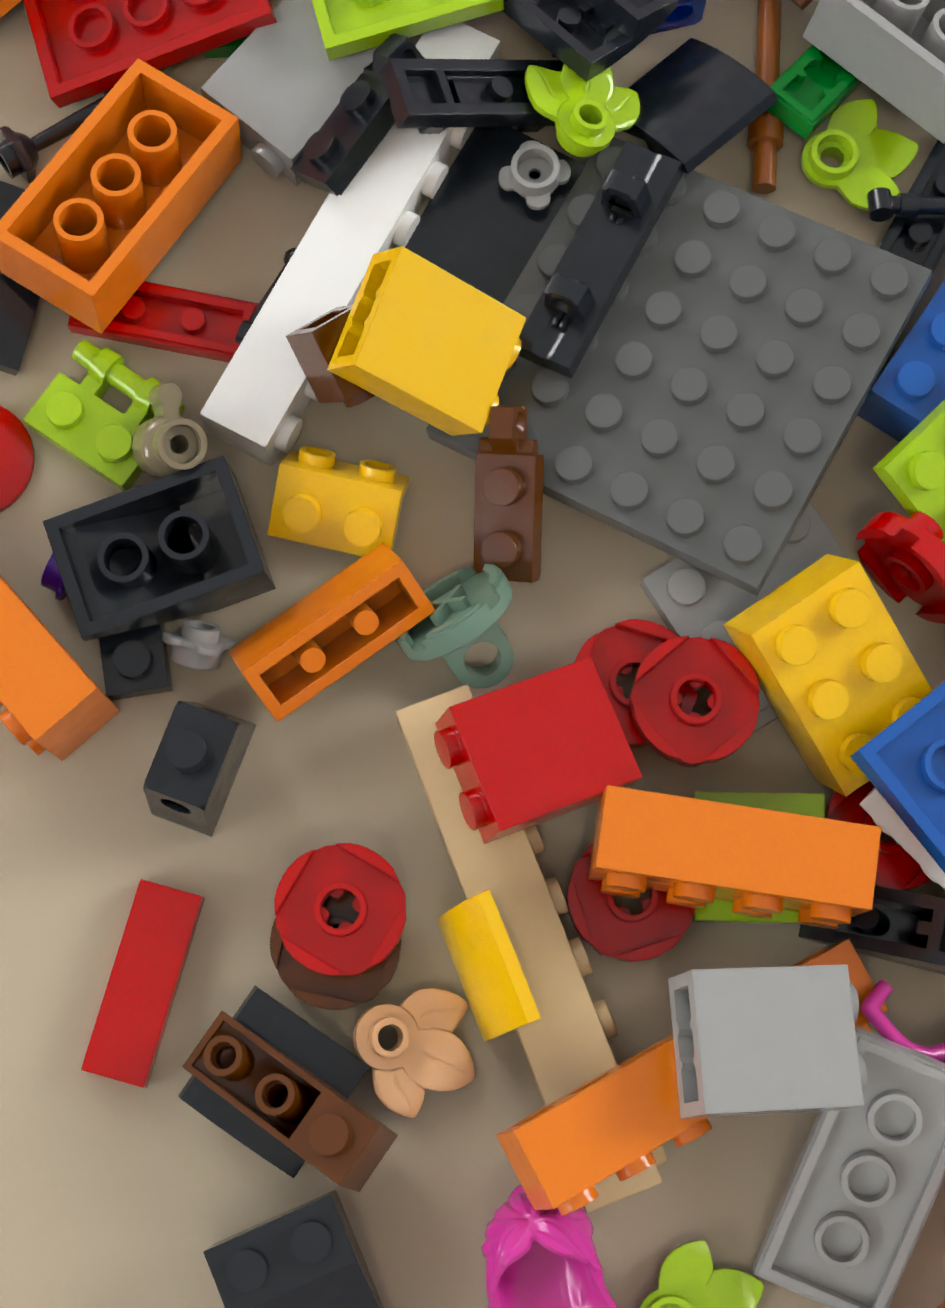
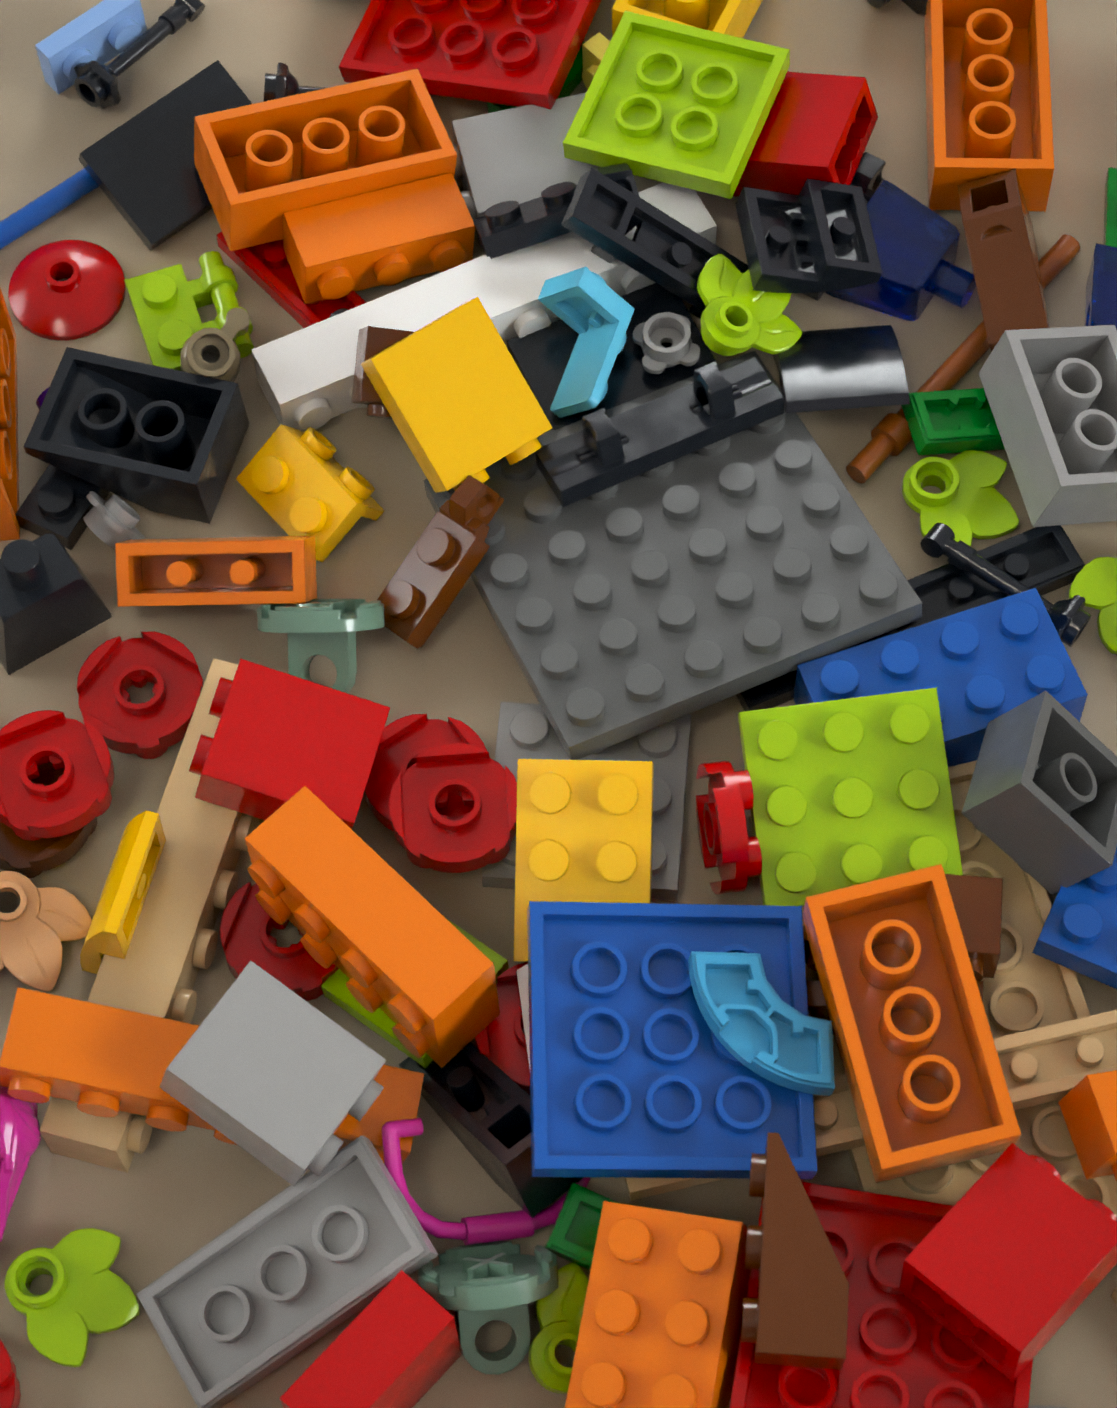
camera: 40 degrees right, 15 degrees down
(218, 237) = (378, 238): none -> orange brick
(317, 752) = (151, 725): none -> red plate
(483, 215) = (601, 321): none -> medium azure bracket

